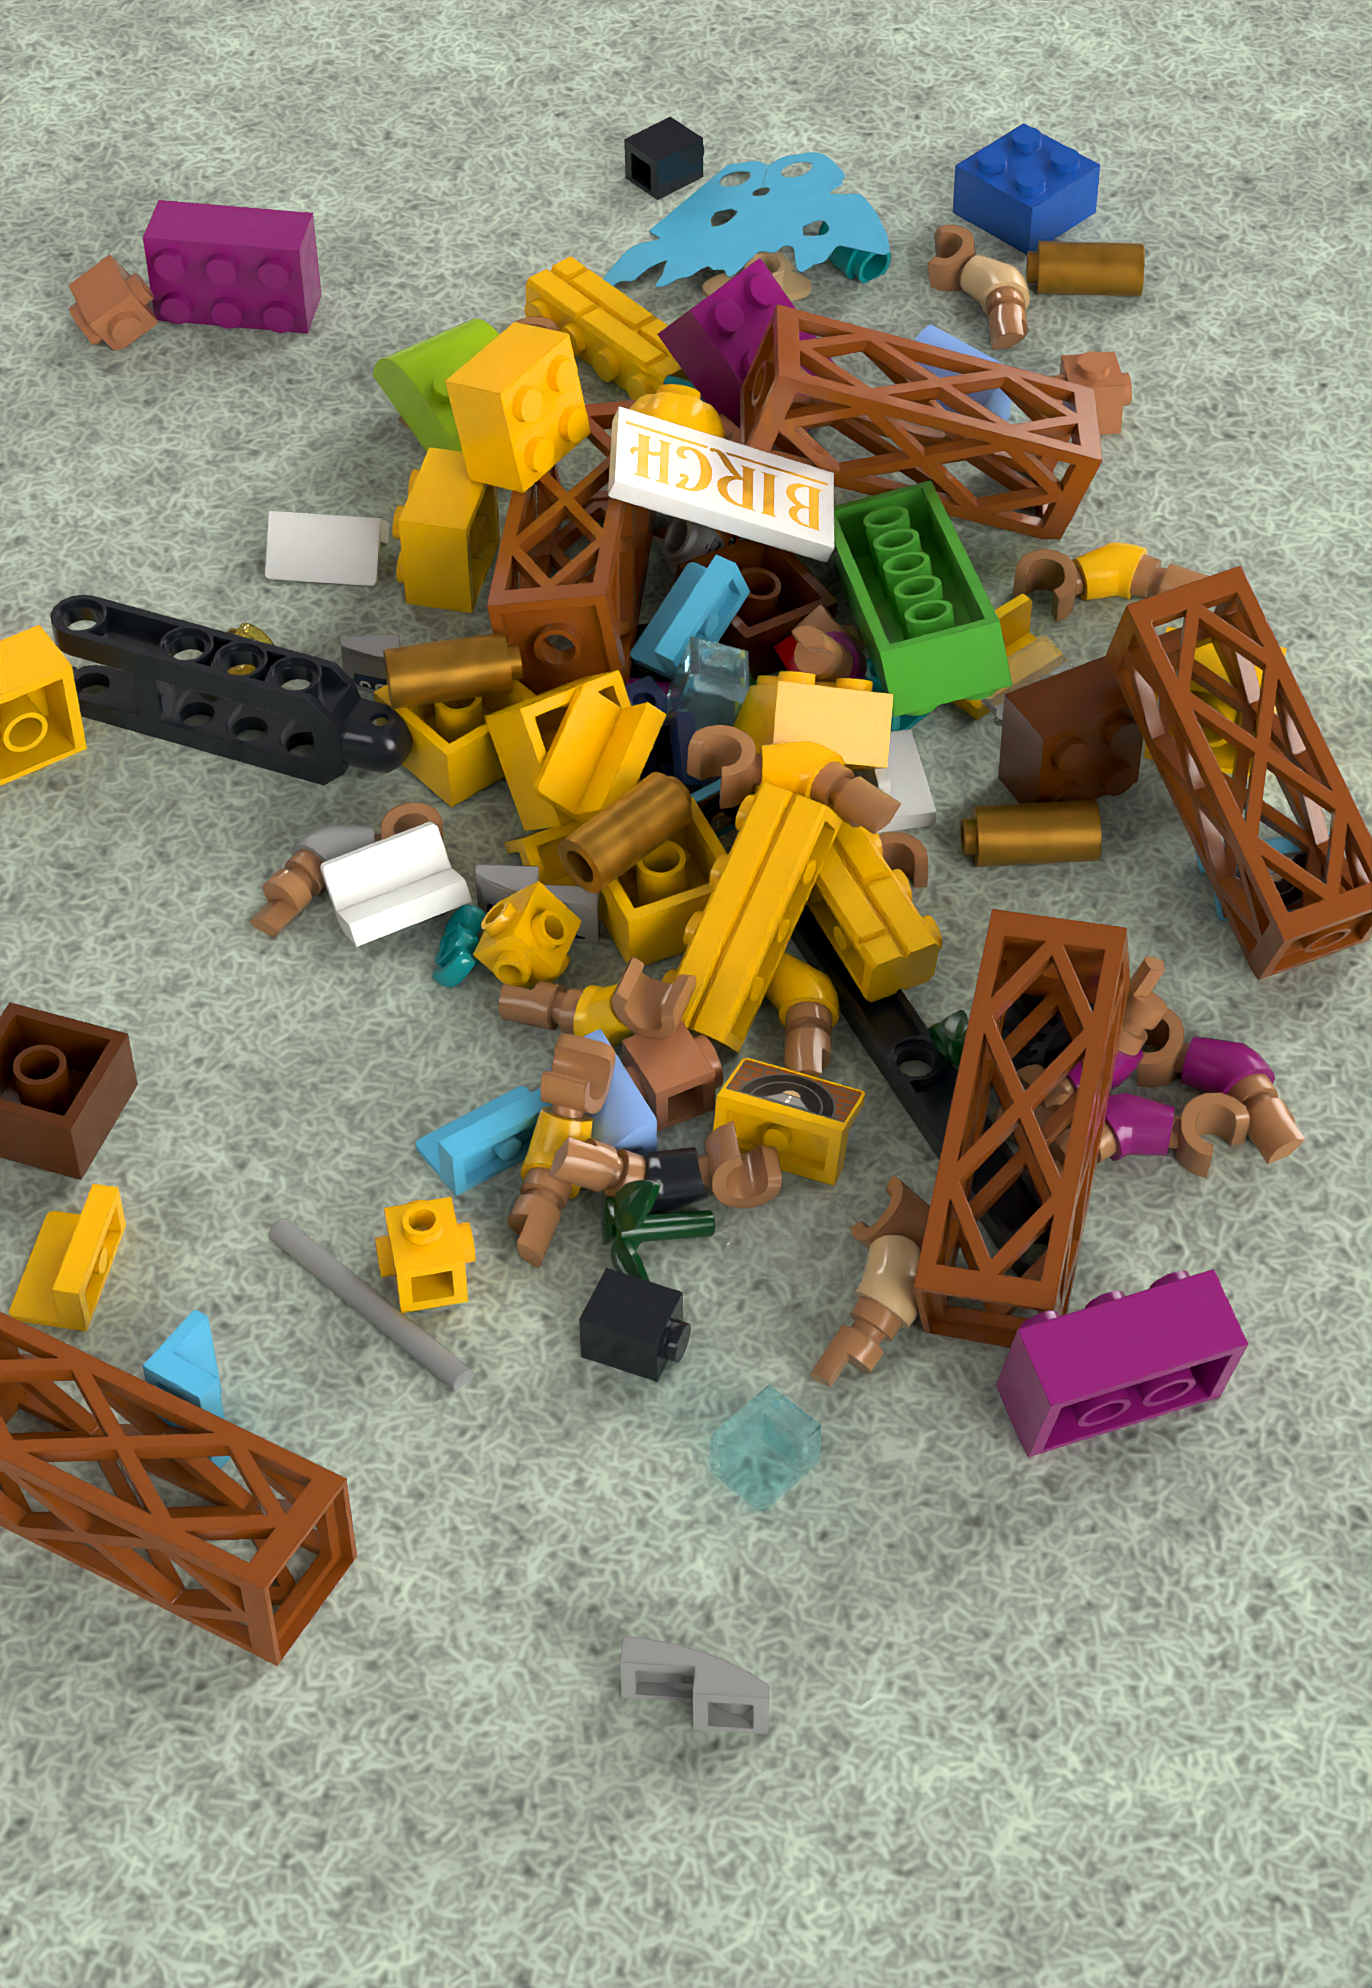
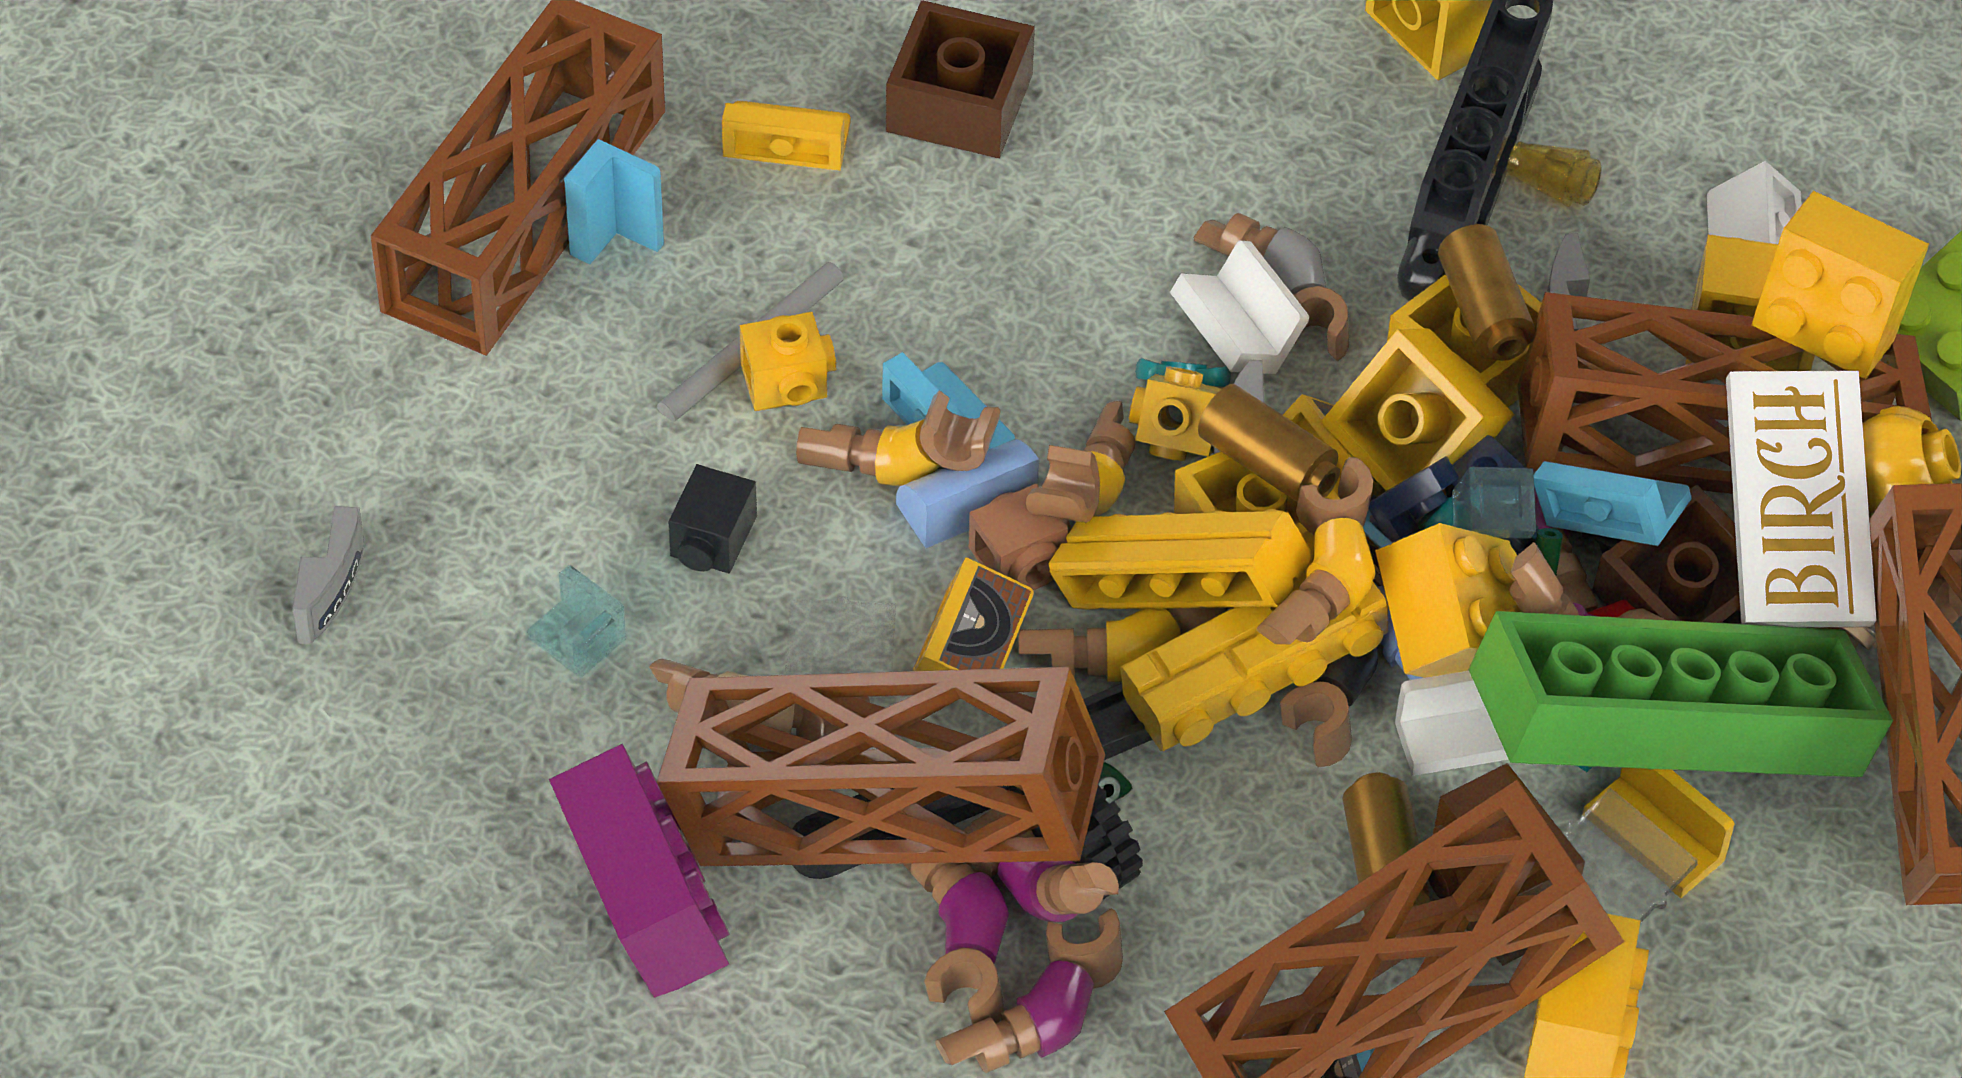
camera: 85 degrees right, 5 degrees up
(596, 753) = (1384, 416): yellow panel -> none
(629, 1224) = (822, 510): dark green plant -> none
(682, 1173) = (886, 537): medium nougat piece -> none
(1101, 573) = (1830, 934): medium nougat piece -> none

